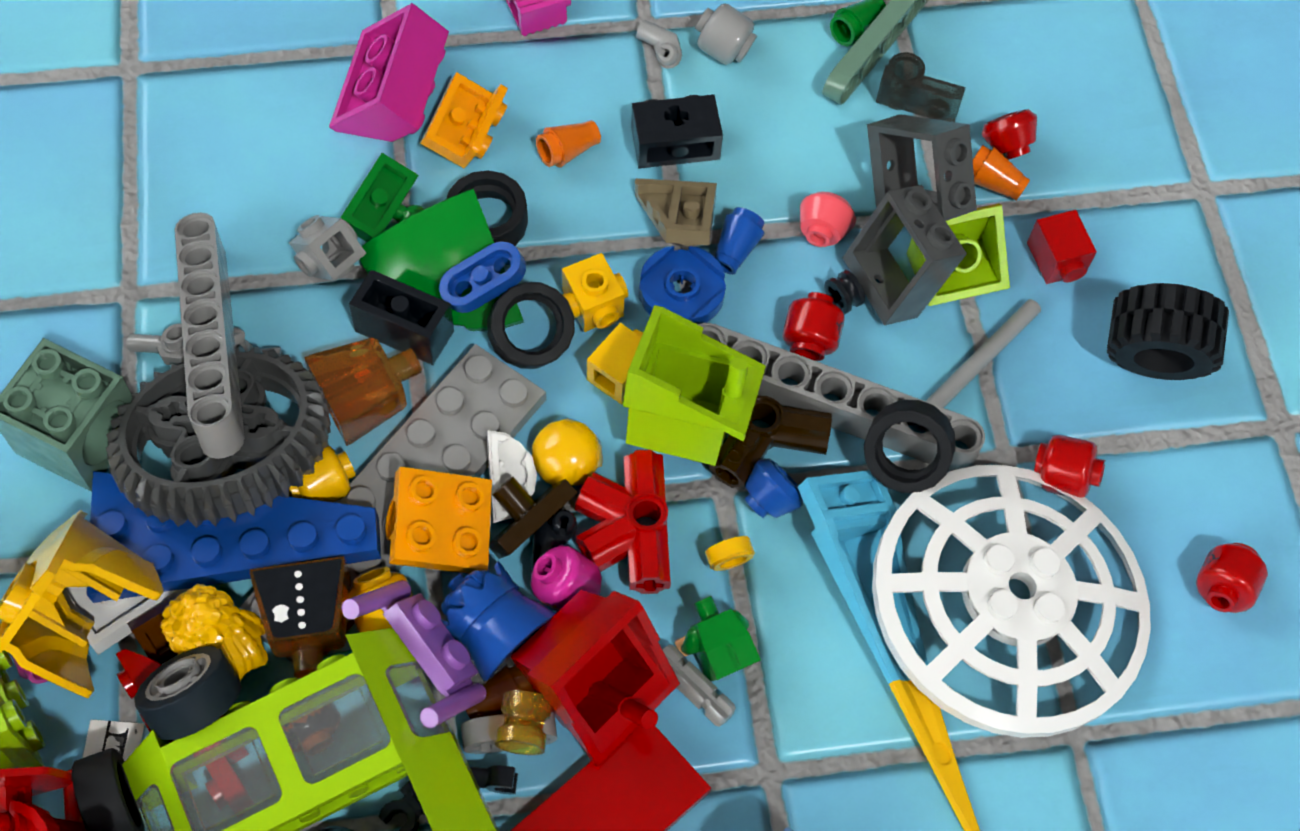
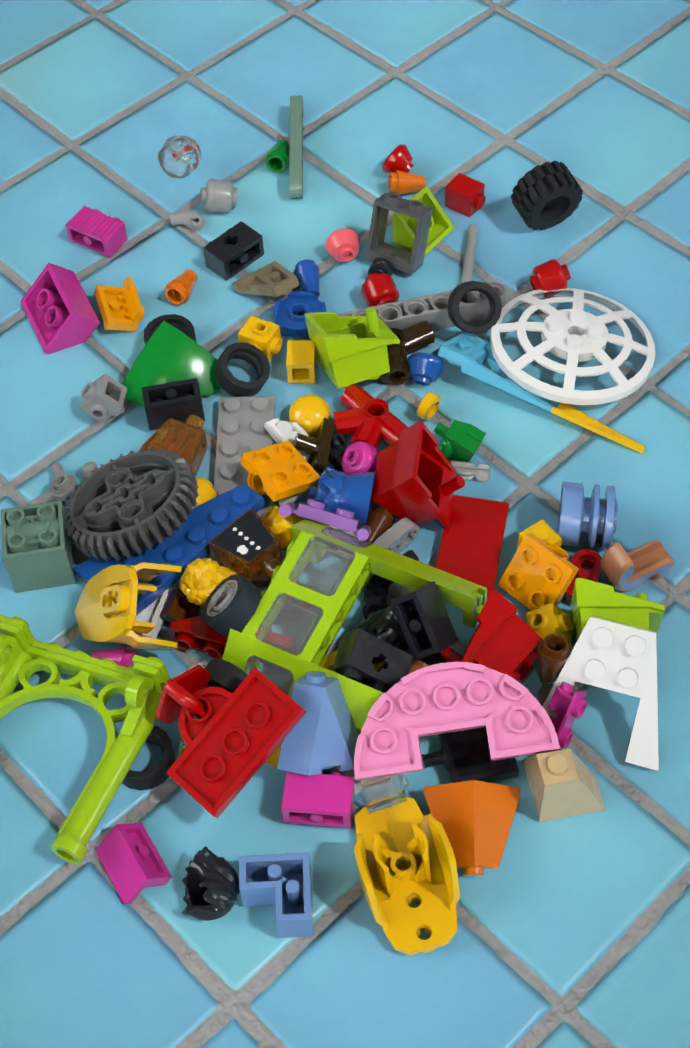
camera: 30 degrees left, 10 degrees down
(208, 337) = (85, 461): light grey beam -> none
(381, 198) = (107, 360): green plate -> none
(483, 276) = (201, 359): blue plate -> none
(523, 723) = (401, 518): clear yellow wheel -> none
(908, 89) = (333, 170): clear smoke plate -> none
(952, 155) = (351, 192): dark grey window -> none
(1232, 577) = (661, 277): red head -> none

